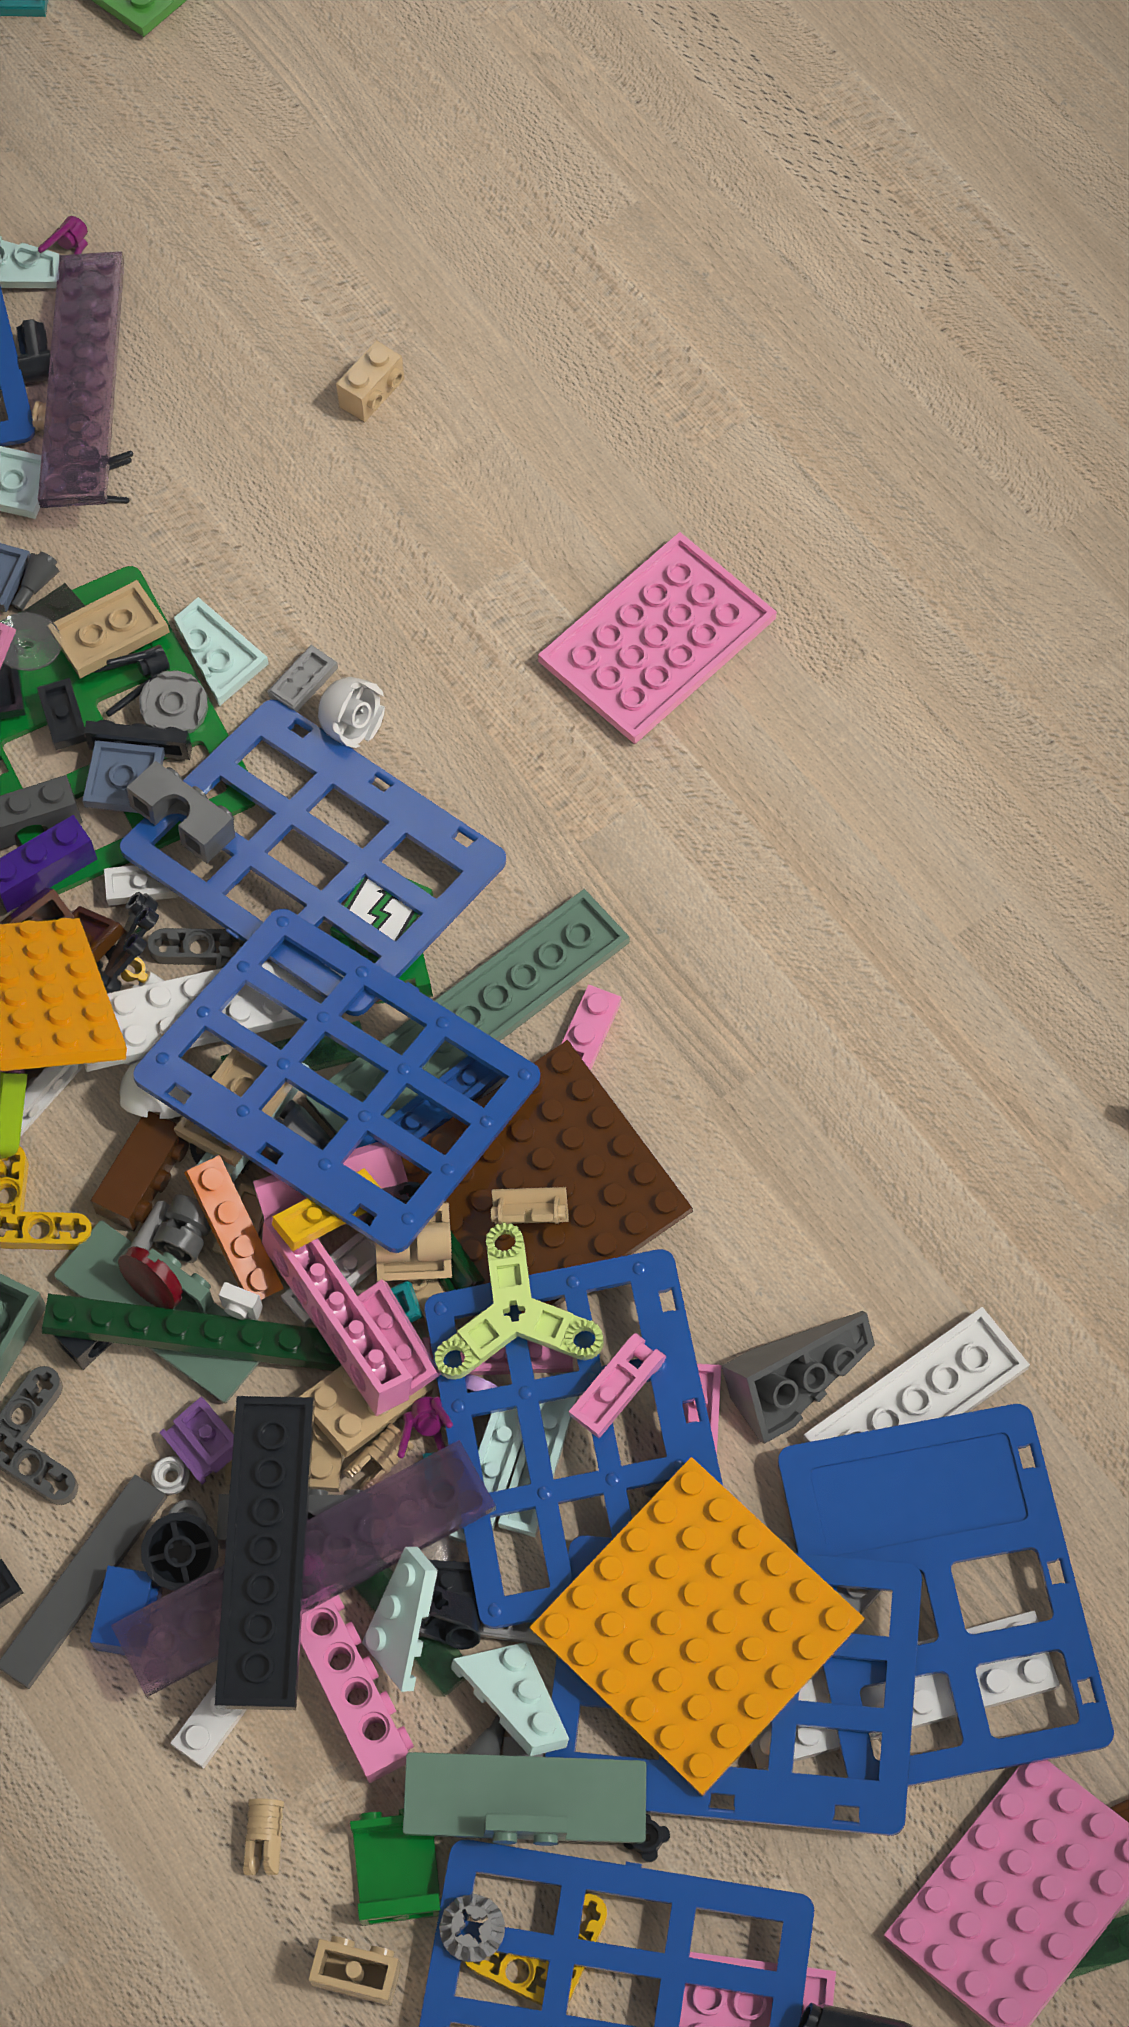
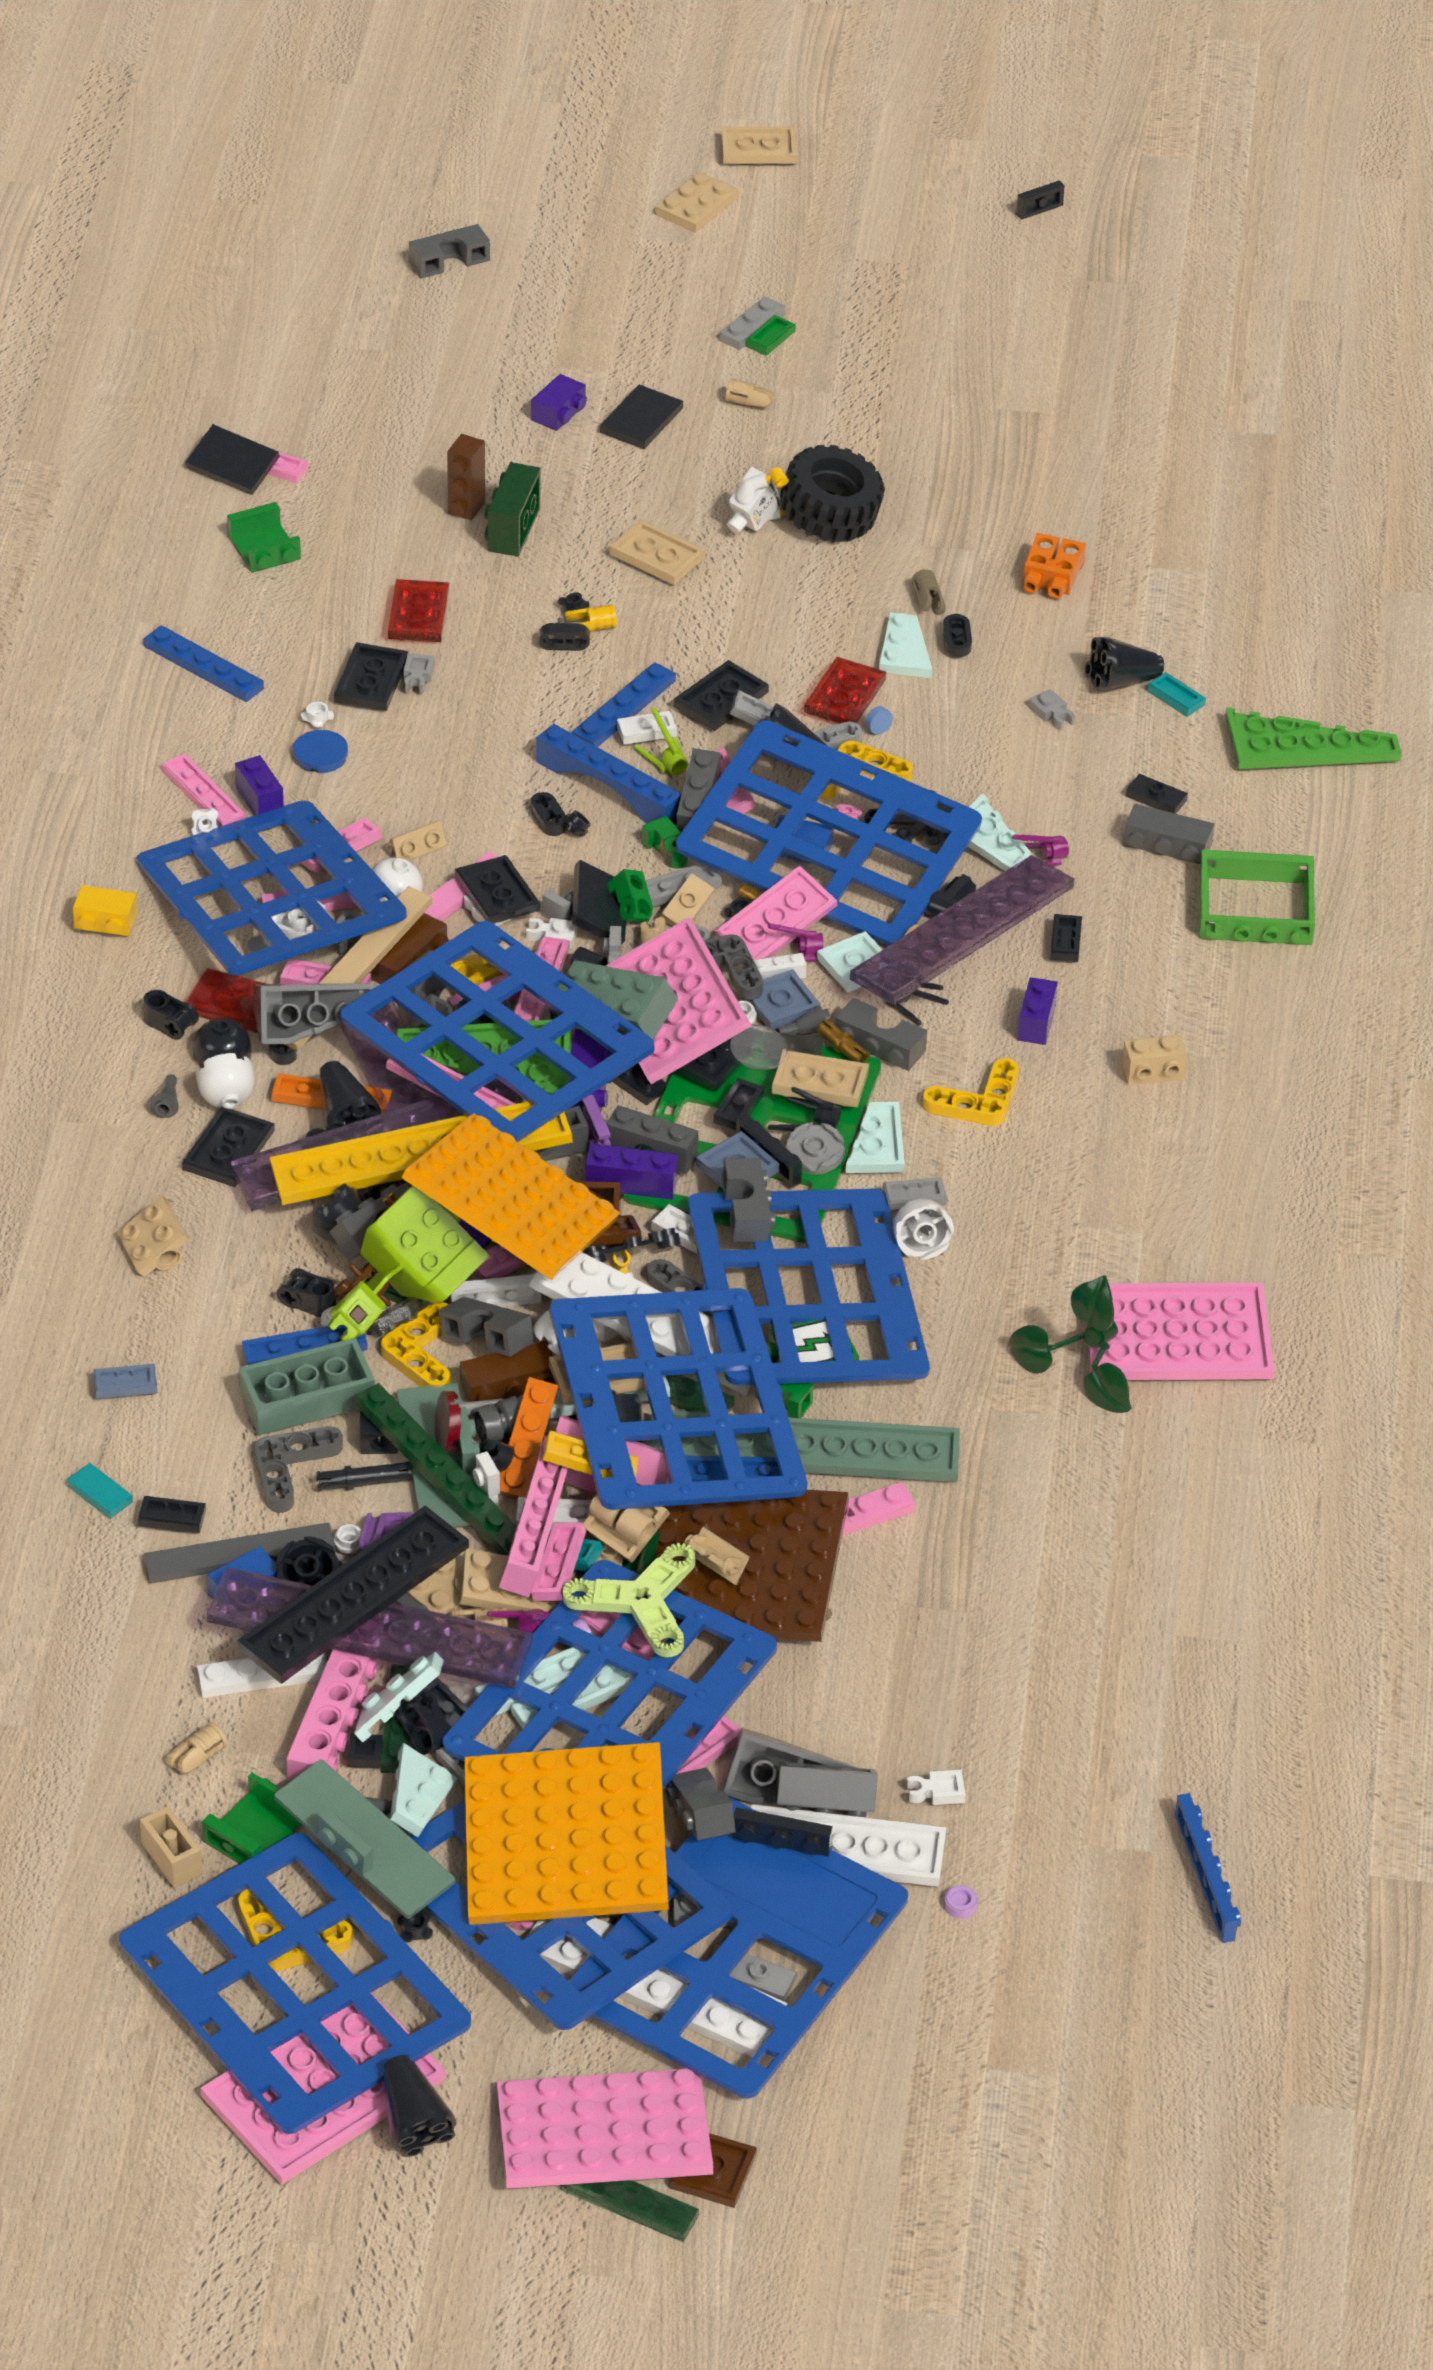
camera: 40 degrees right, 20 degrees down
(49, 1144) = (504, 1328): none -> dark grey arch
(89, 575) = (842, 1042): none -> pearl gold pin
(100, 113) = (1156, 794): none -> black plate
(106, 1407) = (362, 1476): none -> black pin
(136, 542) = (897, 1045): none -> dark grey arch
(154, 145) = (1167, 833): none -> dark grey brick
(170, 316) = (1066, 937): none -> black plate
(218, 1267) = (499, 1452): none -> black beam
(223, 409) = (1037, 1011): none -> dark purple brick
(267, 119) = (1257, 867): none -> bright green window
(268, 533) = (987, 1102): none -> yellow beam
(422, 1698) = (366, 1753): none -> black plate
(491, 1932) = (268, 1883): light grey gear -> none
(611, 684) = (1090, 1303): none -> dark green plant
(616, 1386) = (660, 1677): bright pink plate -> none
(799, 1492) = (700, 1805): none -> dark grey arch
(852, 1360) = (826, 1788): none -> brick
(875, 1448) = (782, 1832): none -> black plate
(933, 1266) = (942, 1787): none -> white plate
(989, 1600) = (765, 1976): none -> light grey plate
(1059, 1367) = (960, 1902): none -> lavender tile

